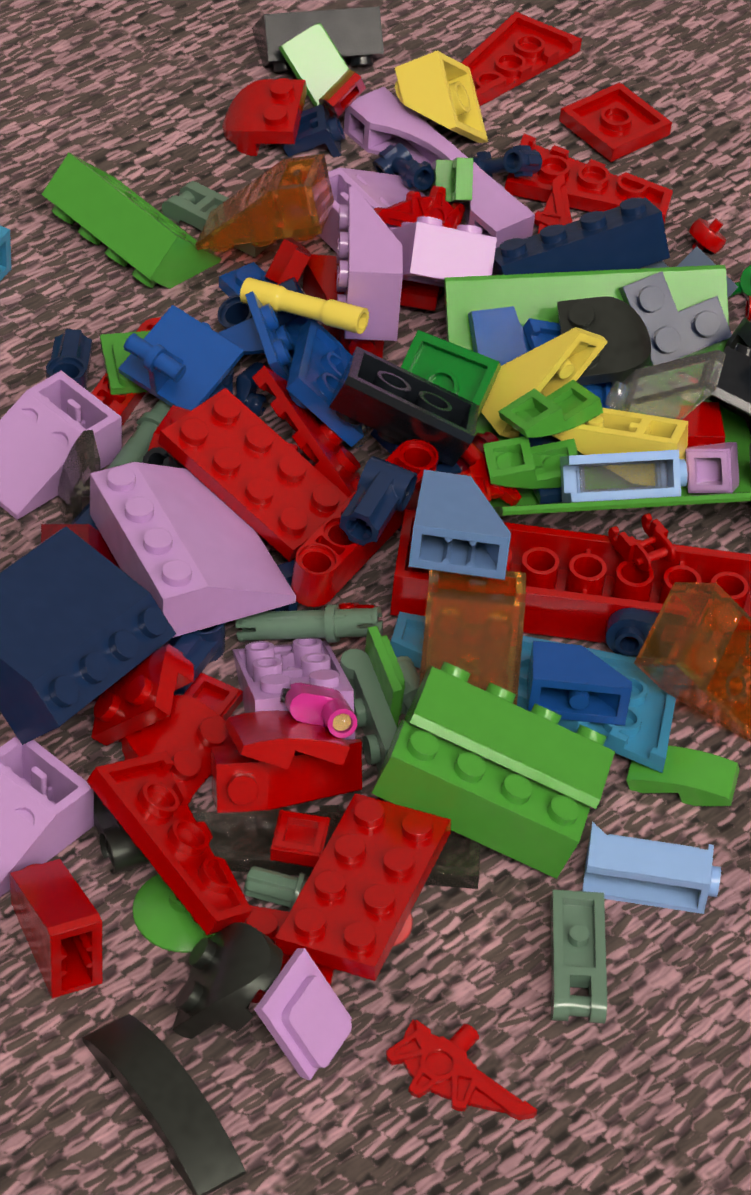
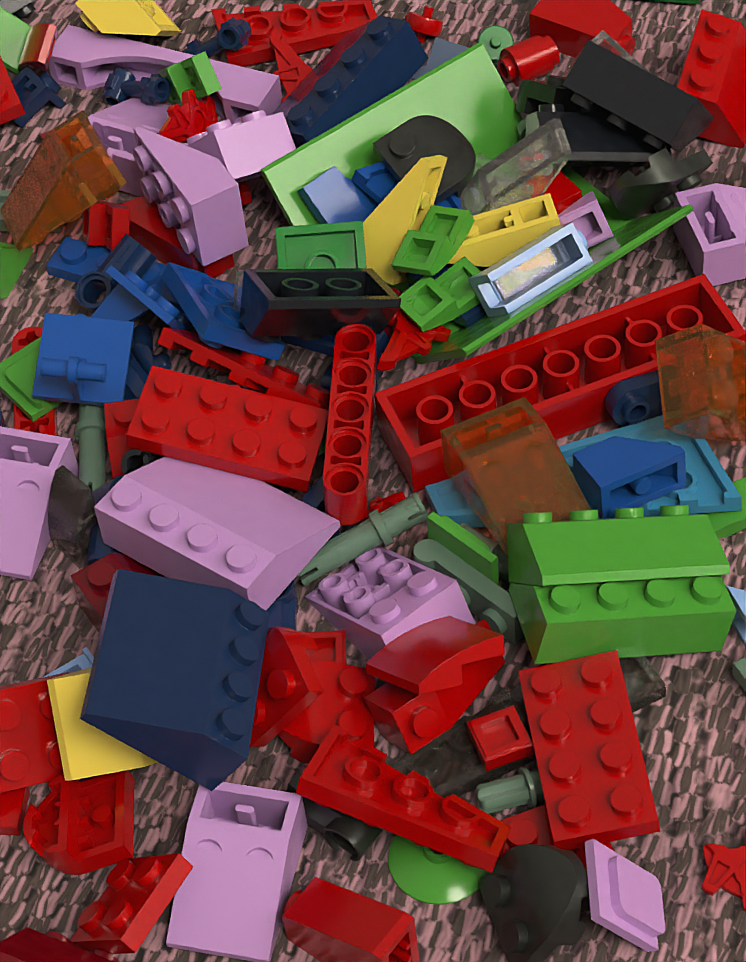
camera: 20 degrees left, 5 degrees up
(320, 707) = (446, 610): dark pink piece -> none
(329, 312) = (185, 250): light yellow piece -> none
(379, 495) = (360, 392): dark blue piece -> none
(458, 528) = (444, 387): medium blue slope -> none
(633, 550) = (589, 328): red piece -> none
(674, 331) = (476, 115): plate -> none

